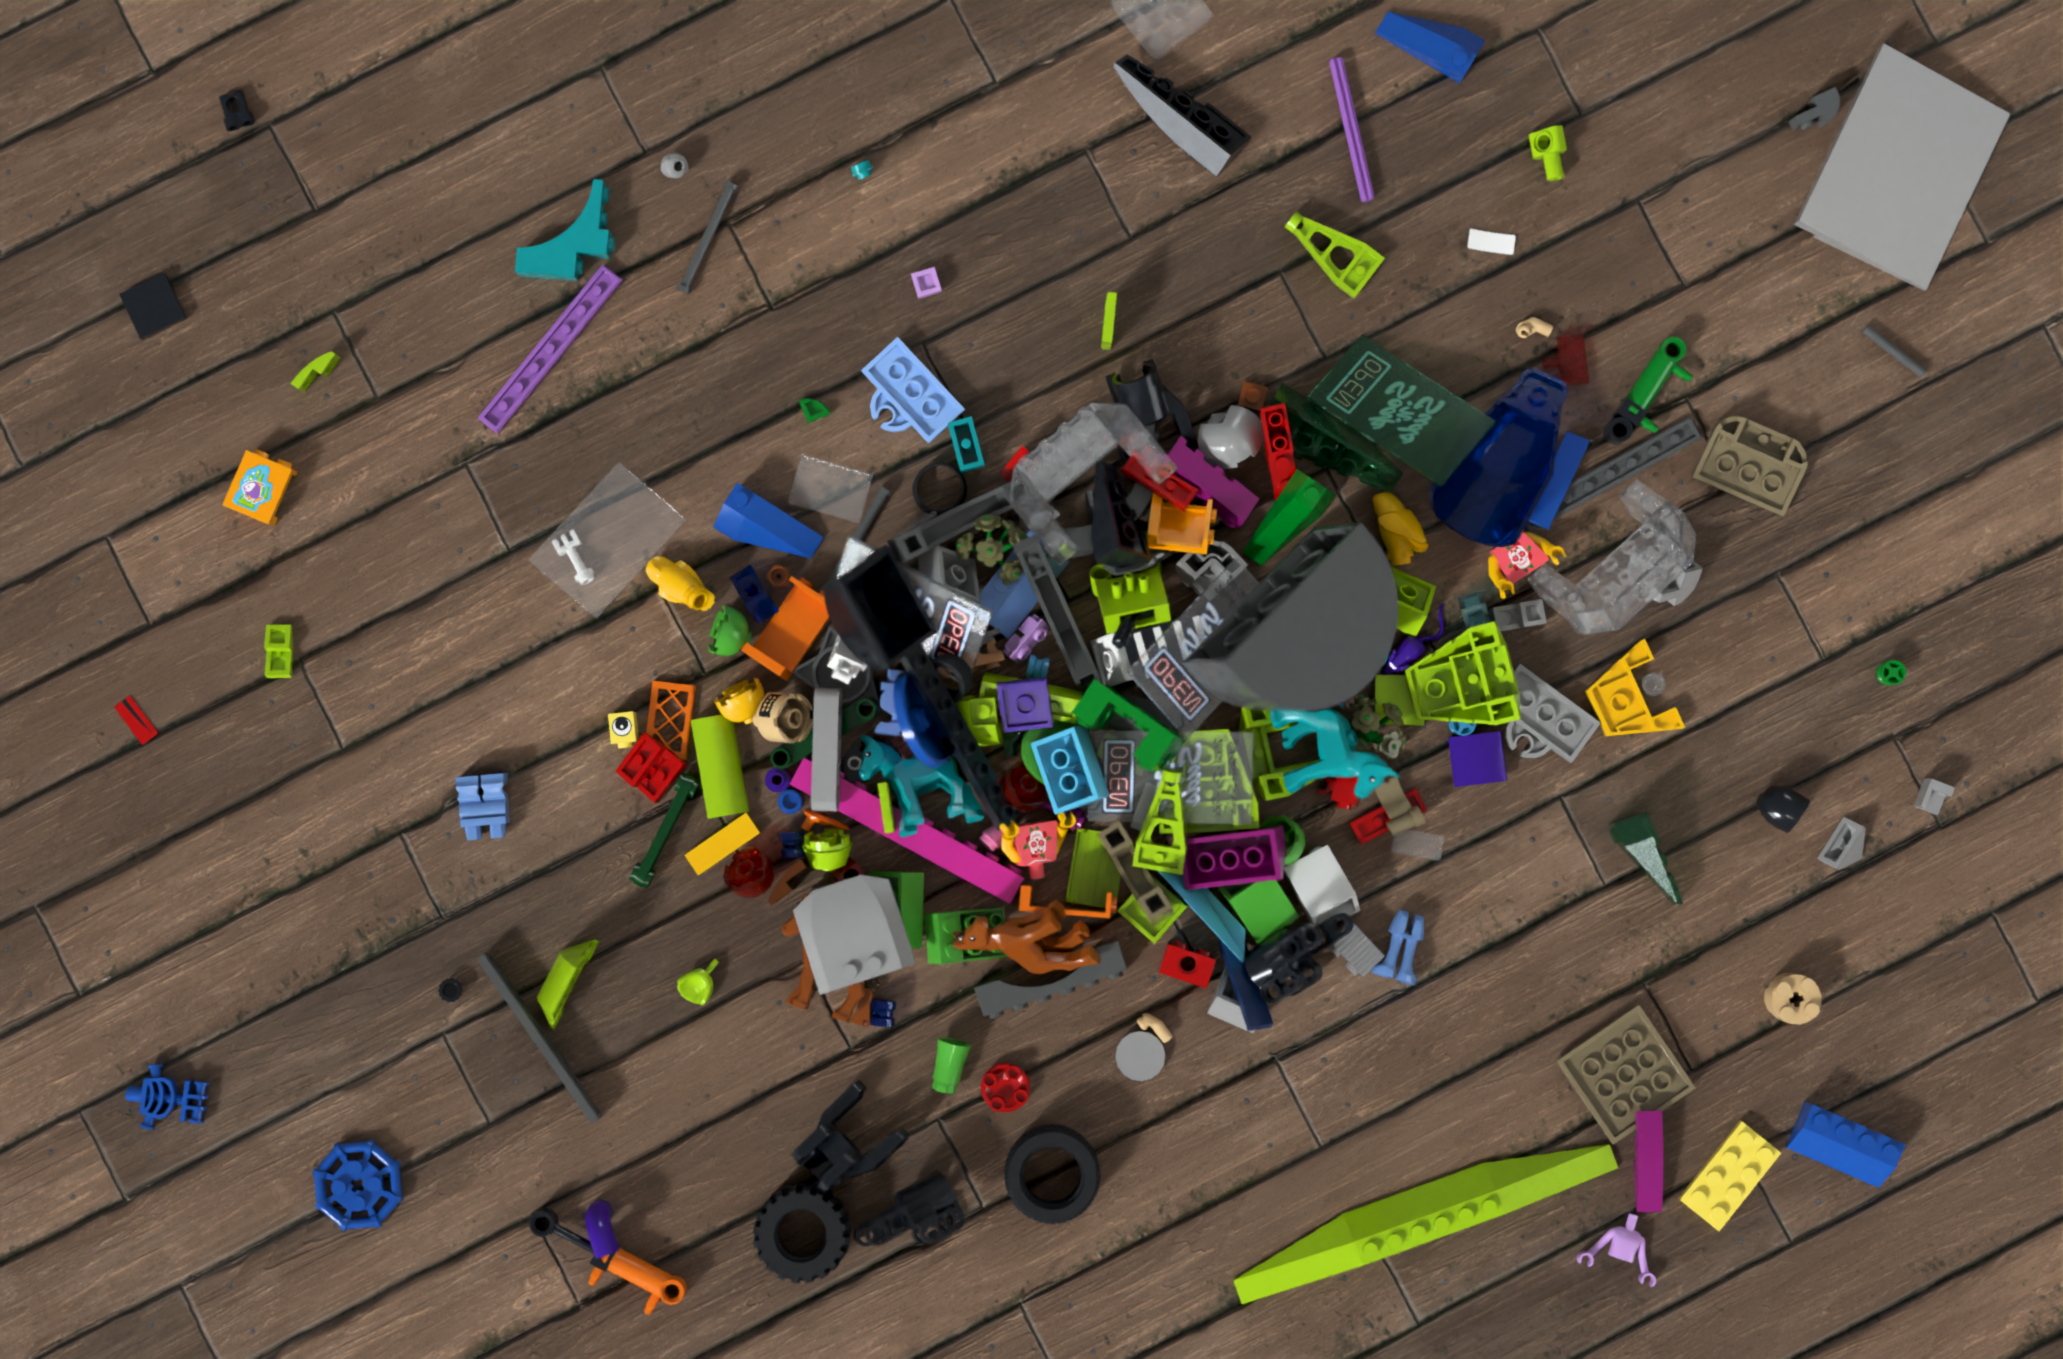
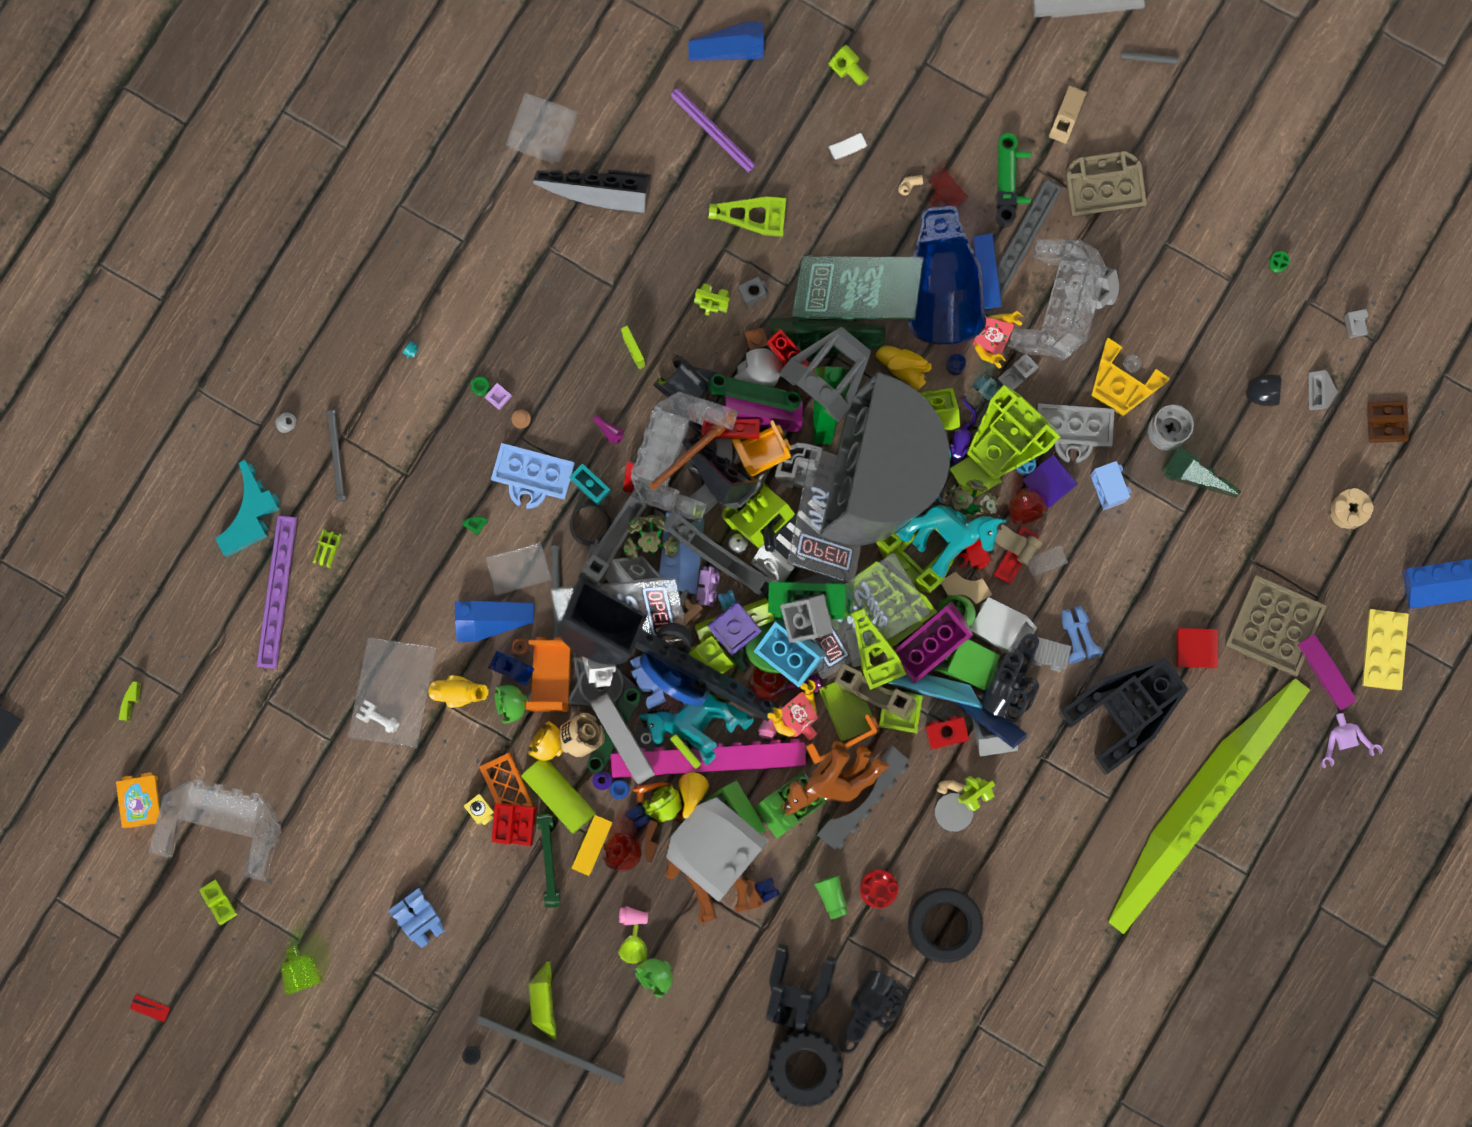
camera: 25 degrees left, 5 degrees down
(319, 783) = (299, 972): none -> clear neon green torso
(340, 555) = (223, 811): none -> clear wedge
(633, 335) = (327, 547): none -> lime arm
(702, 1029) = (656, 975): none -> bright green cylinder
(717, 948) = (632, 916): none -> bright pink cone
(869, 852) = (692, 788): none -> yellow hat
(914, 258) = (480, 386): none -> green tile
(936, 323) = (521, 419): none -> medium nougat plate
(1027, 401) = (612, 432): none -> magenta cone
(1088, 612) = (737, 544): none -> light grey piece
(1109, 747) = (806, 618): none -> light grey brick
(1139, 473) = (715, 431): none -> dark orange bar
(1177, 1047) = (973, 790): none -> lime hips
(1211, 456) = (754, 392): none -> dark green piece
(1229, 323) = (712, 301): none -> lime hips
(1273, 346) = (748, 298): none -> dark grey brick
(1283, 494) = (816, 387): none -> dark grey windscreen
(1318, 827) = (974, 590): none -> tan tile
(1418, 1065) = (1137, 701): none -> black wedge
(1434, 770) = (1027, 506): none -> clear red cylinder
(1459, 560) = (958, 361): none -> clear blue wheel
(1522, 1044) = (1197, 648): none -> red slope
(1541, 805) = (1110, 485): none -> light blue container
(1663, 783) = (1180, 425): none -> light grey wheel
(1760, 359) = (1067, 114): none -> tan slope
(1896, 926) = (1387, 421): none -> reddish brown slope

